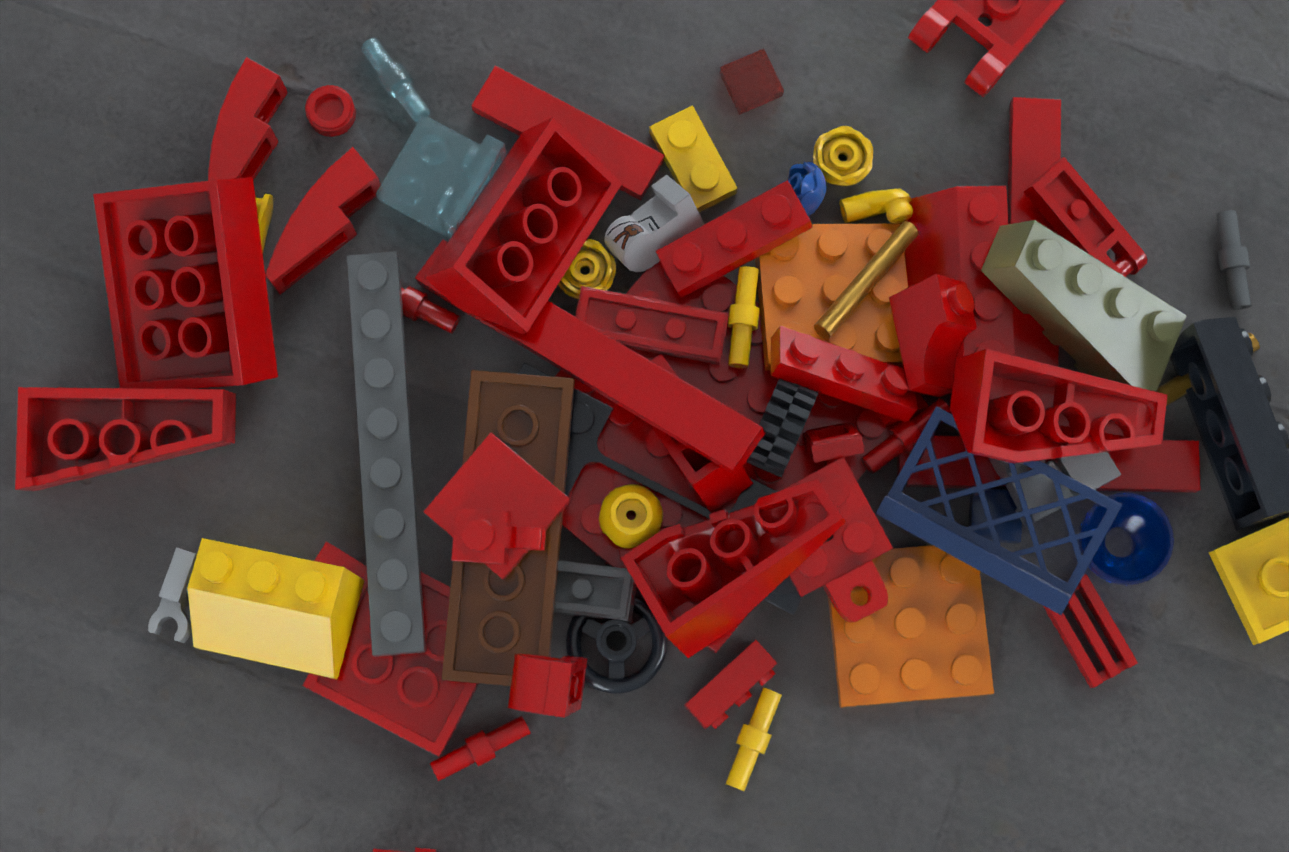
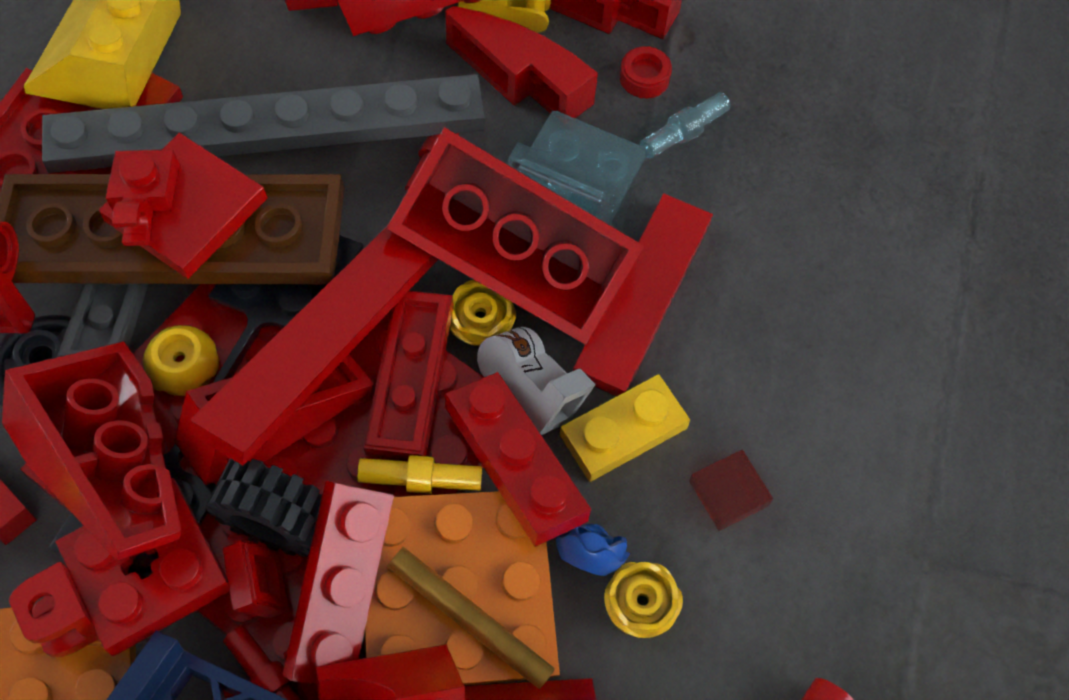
camera: 85 degrees right, 15 degrees down
(872, 203) = (586, 660): yellow arm -> none

